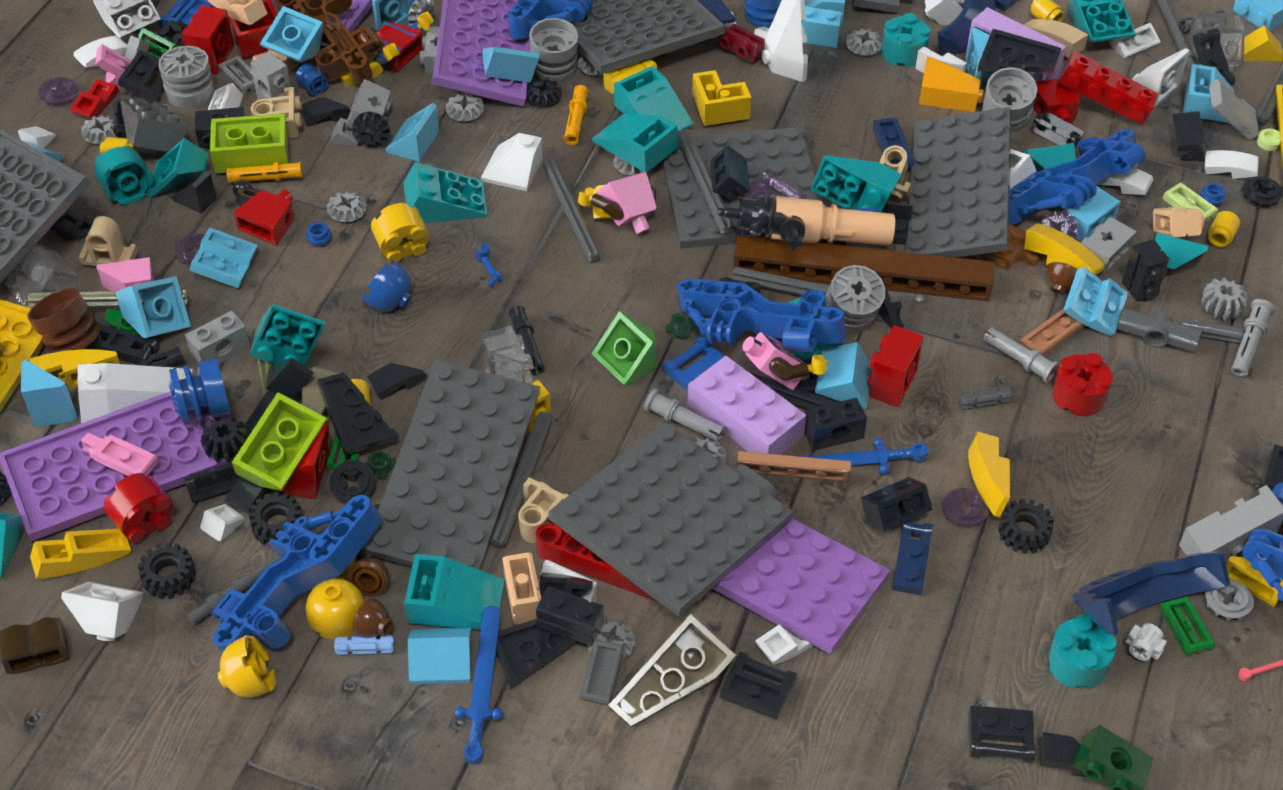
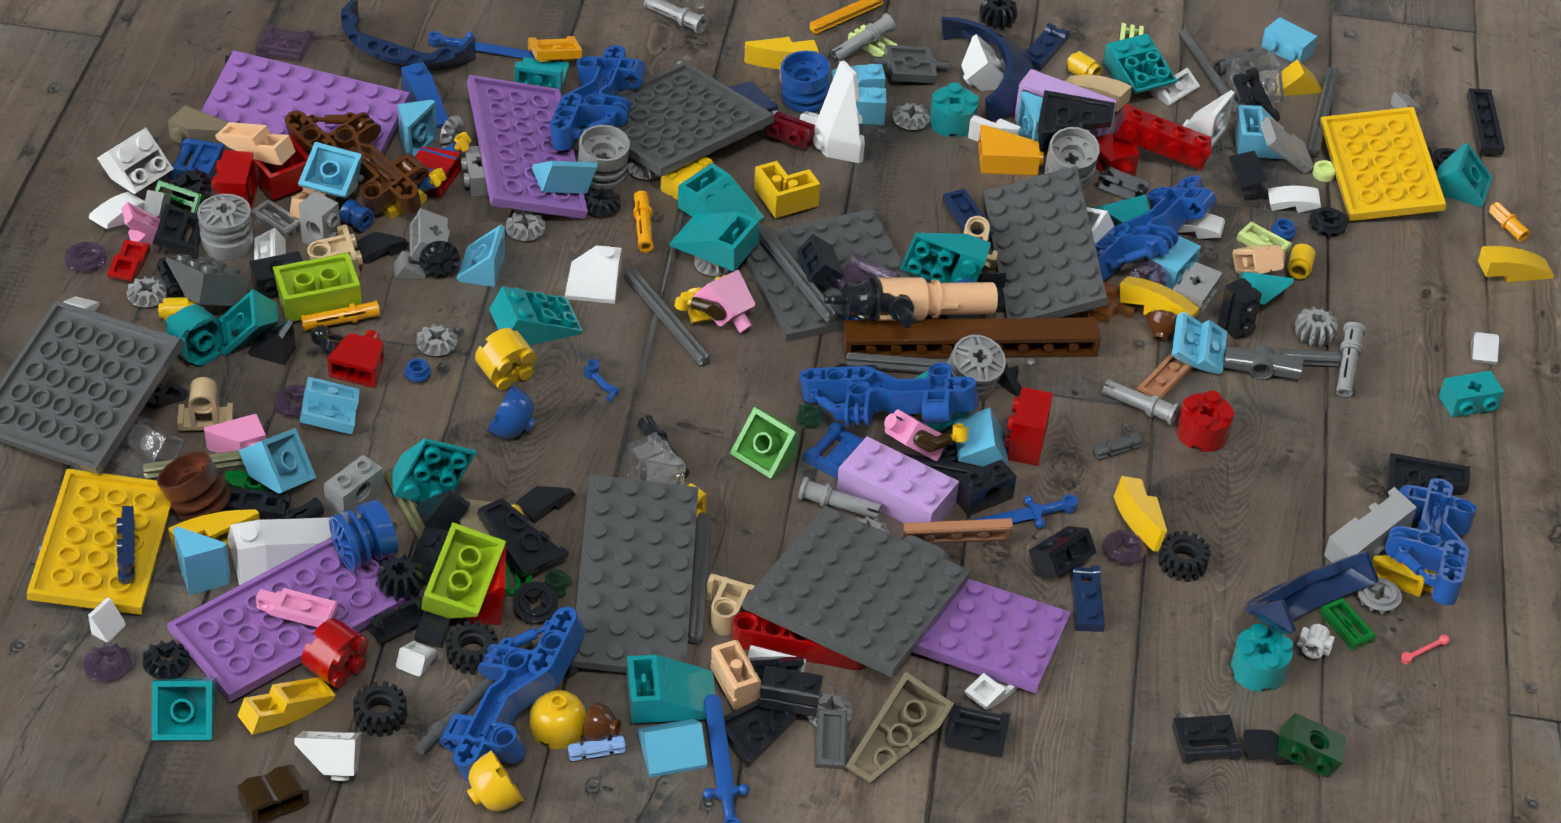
camera: 15 degrees left, 5 degrees down
(369, 576) = (584, 684): reddish brown brick -> none

